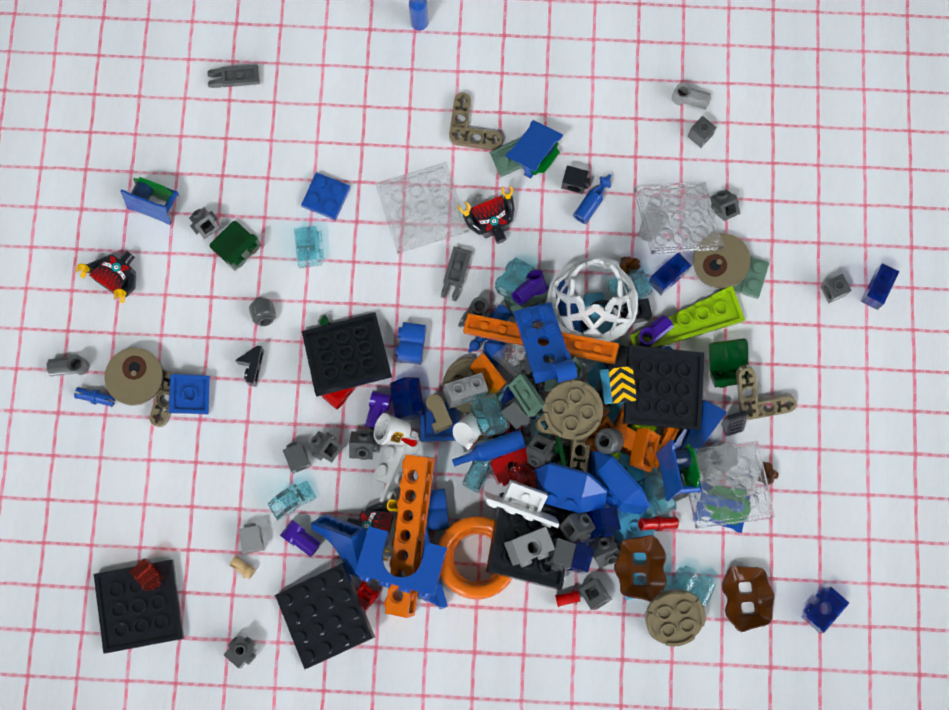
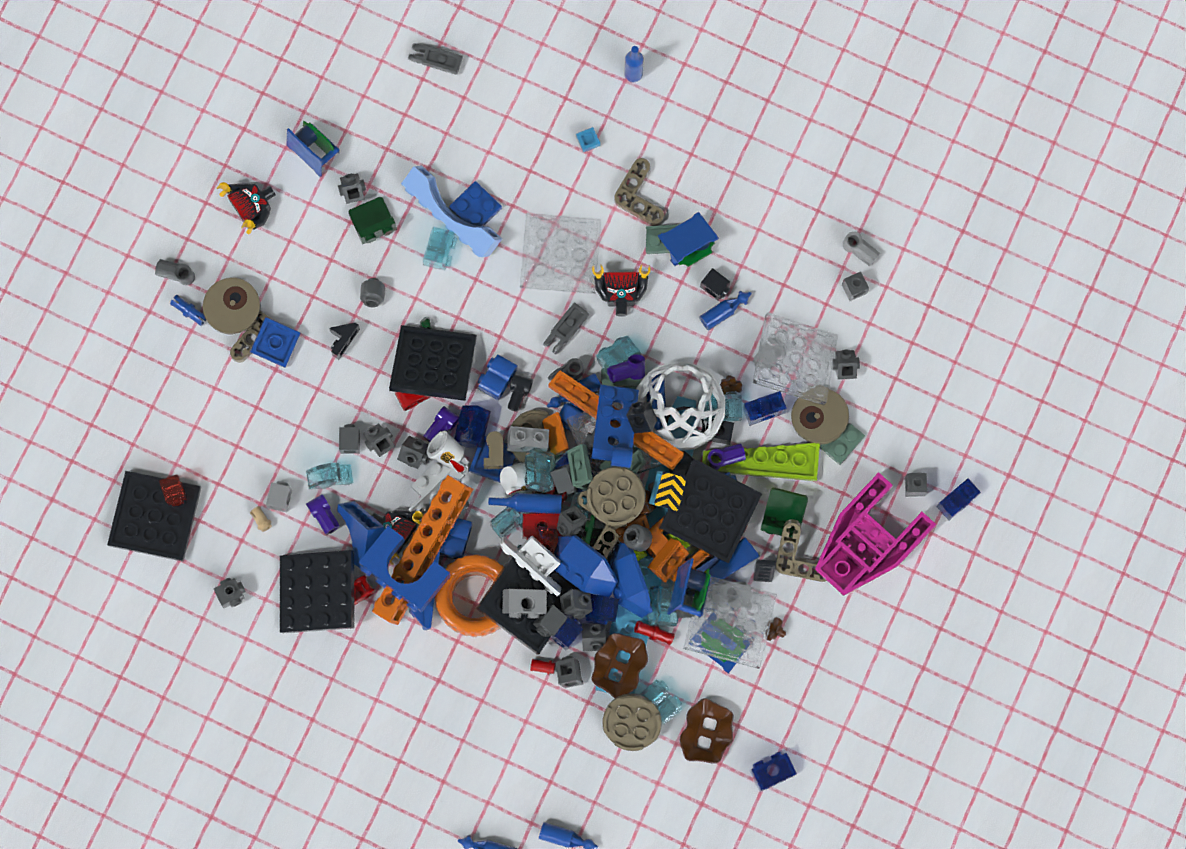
camera: 20 degrees right, 0 degrees up
(270, 195) = (424, 187): none -> light blue arch
(404, 95) = (588, 139): none -> dark azure plate
(436, 345) = (520, 387): none -> black axle
(566, 326) = (641, 417): none -> black brick
(814, 366) = (861, 547): none -> dark pink wedge

